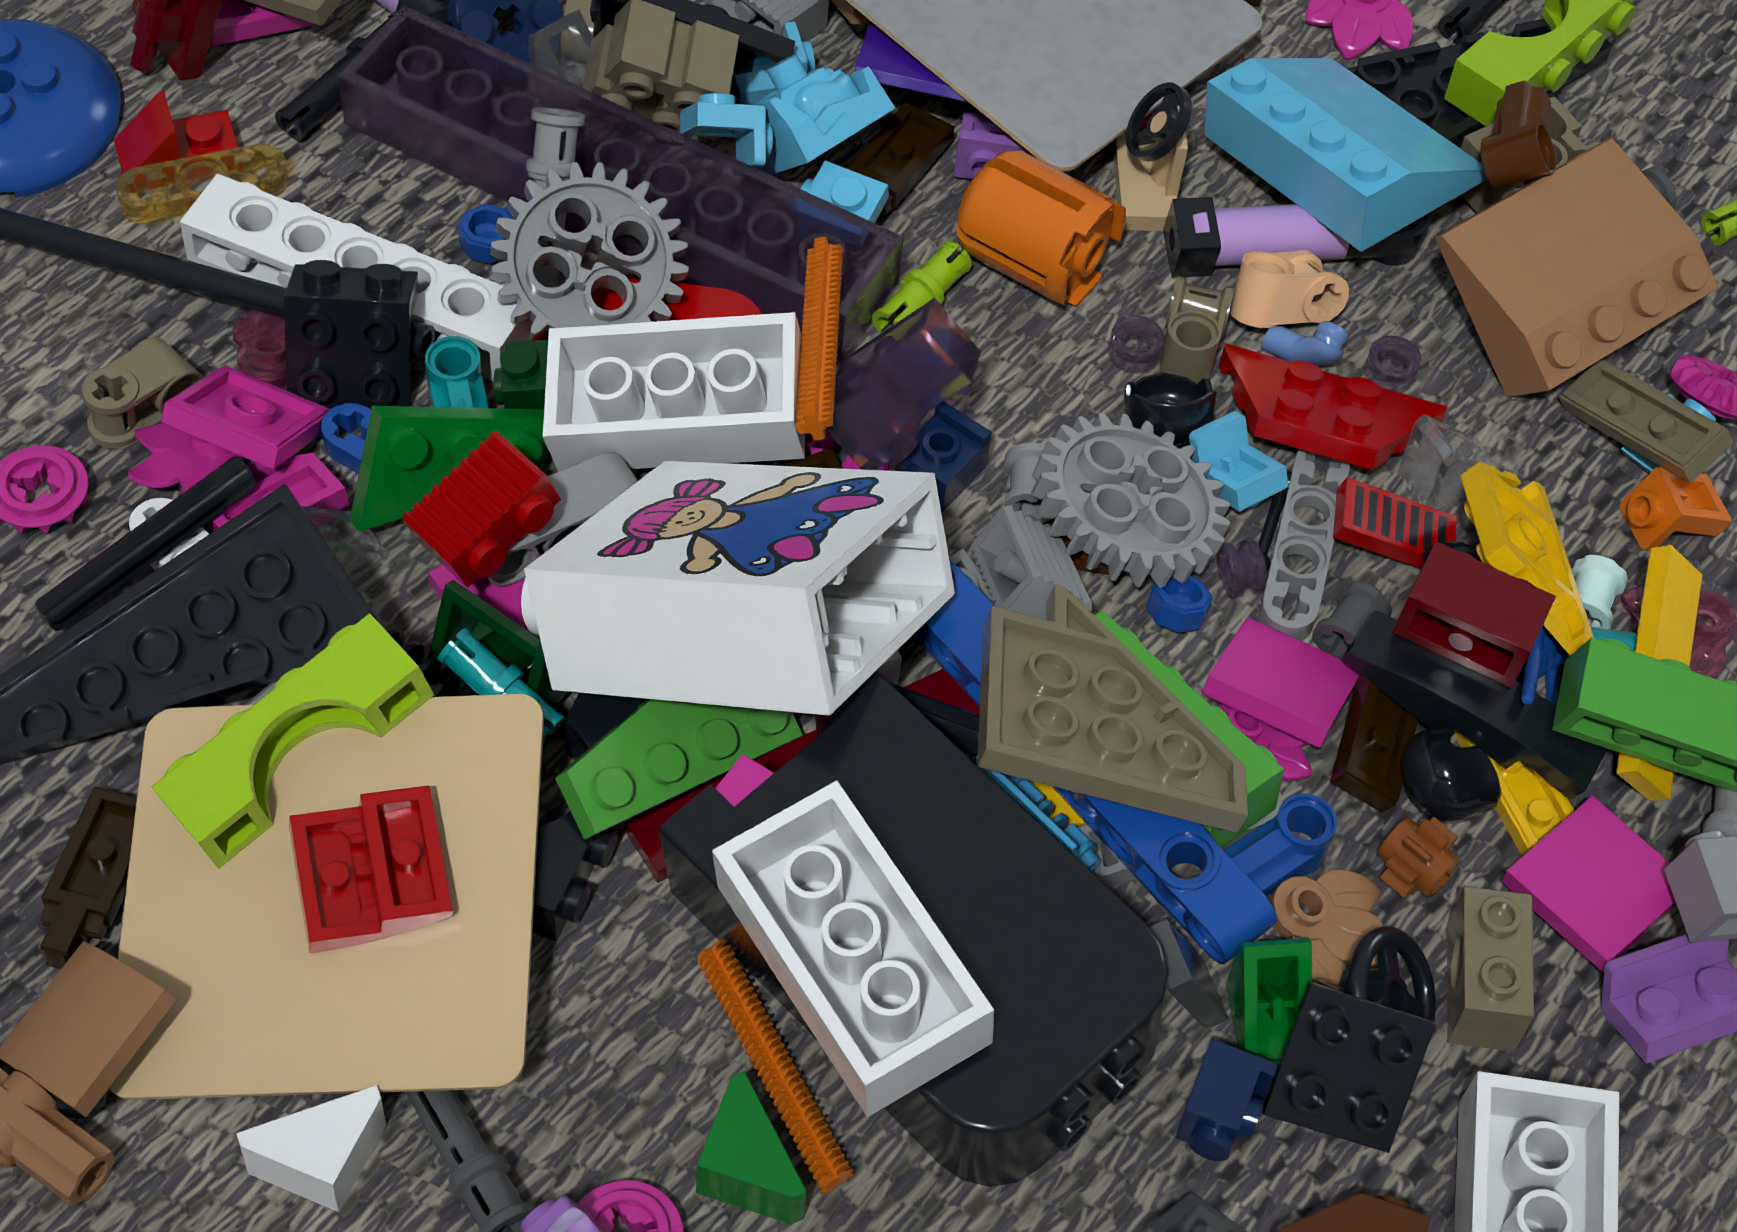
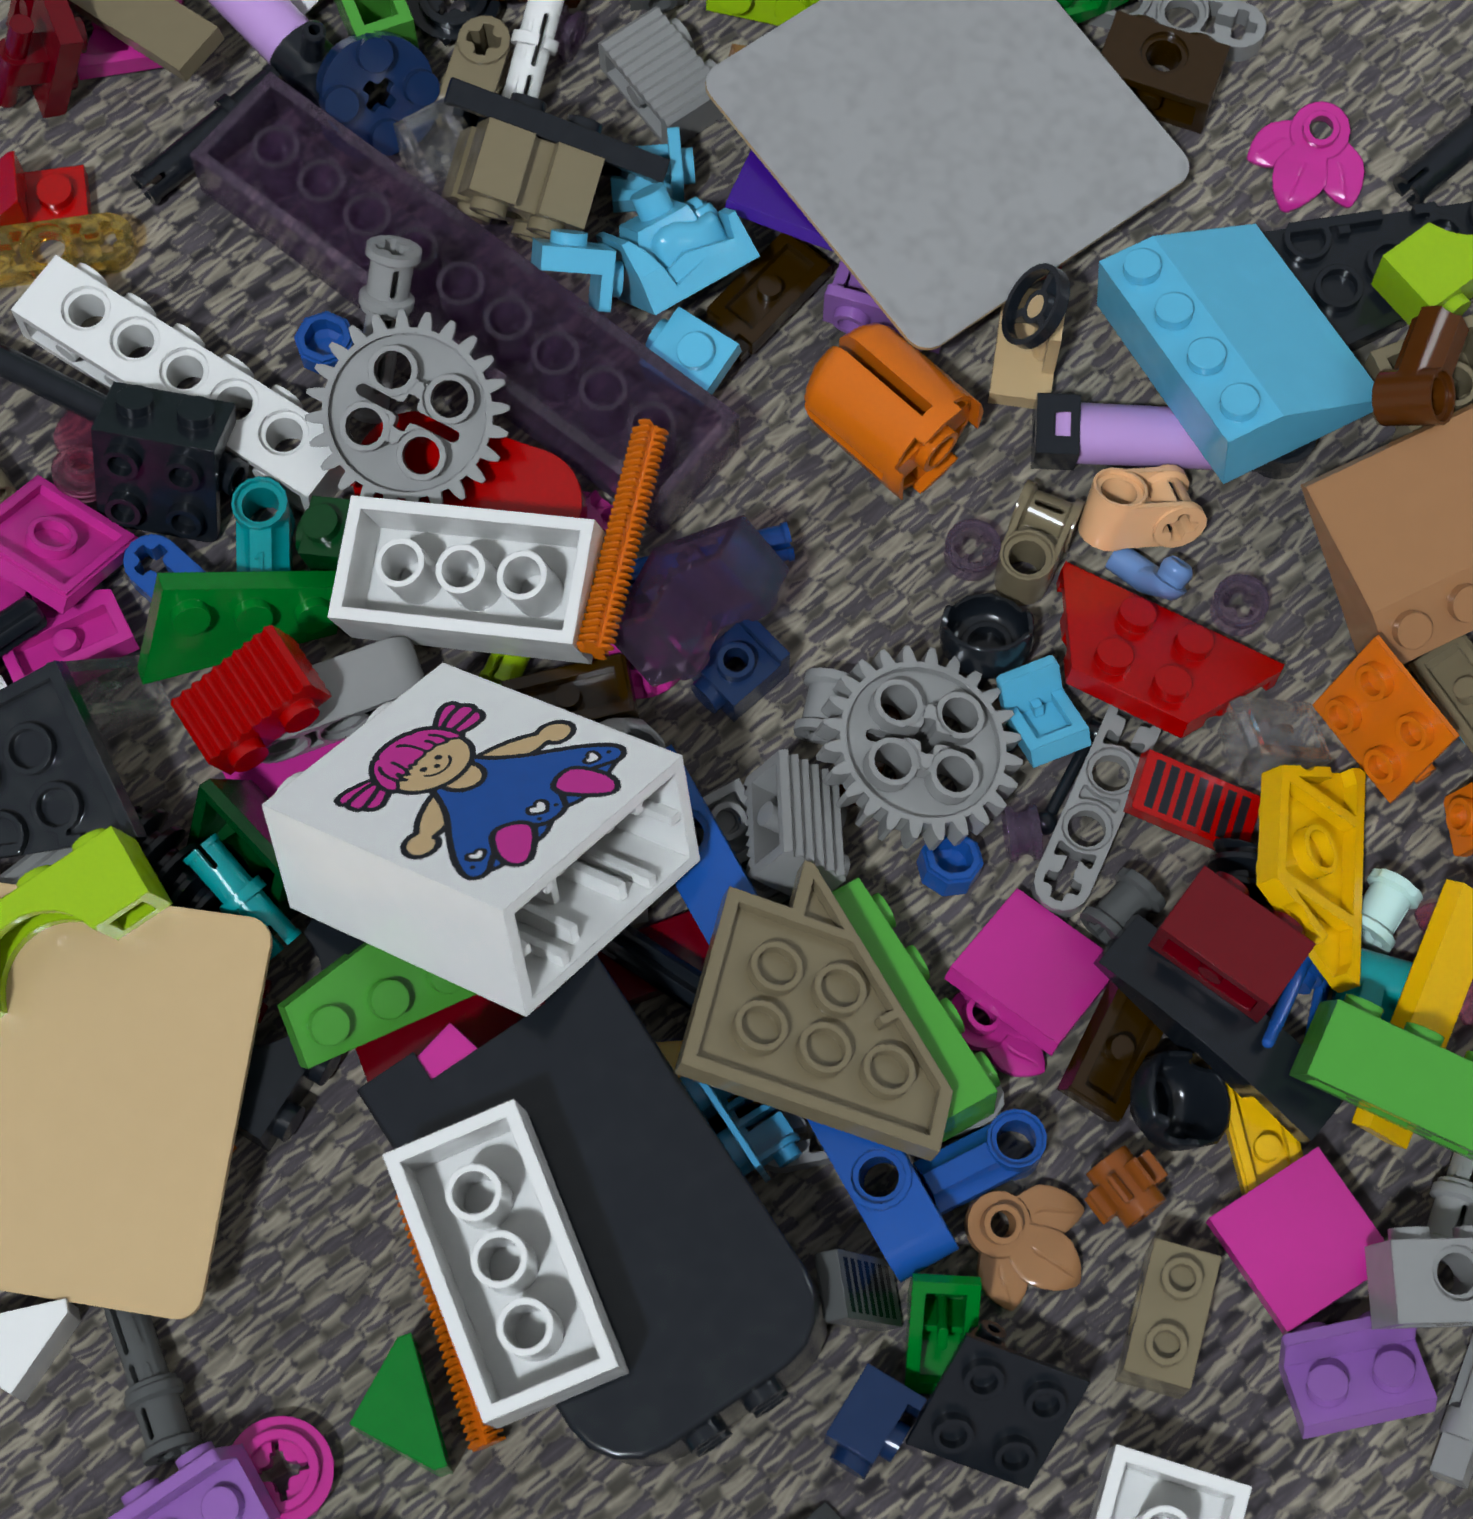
camera: 15 degrees right, 15 degrees up
(370, 869) = (85, 1080): red slope -> none
(923, 285) = (760, 461): lime pin -> none
(1385, 983) = (1049, 1328): black piece -> none
(1556, 431) = (1385, 720): none -> orange hinge

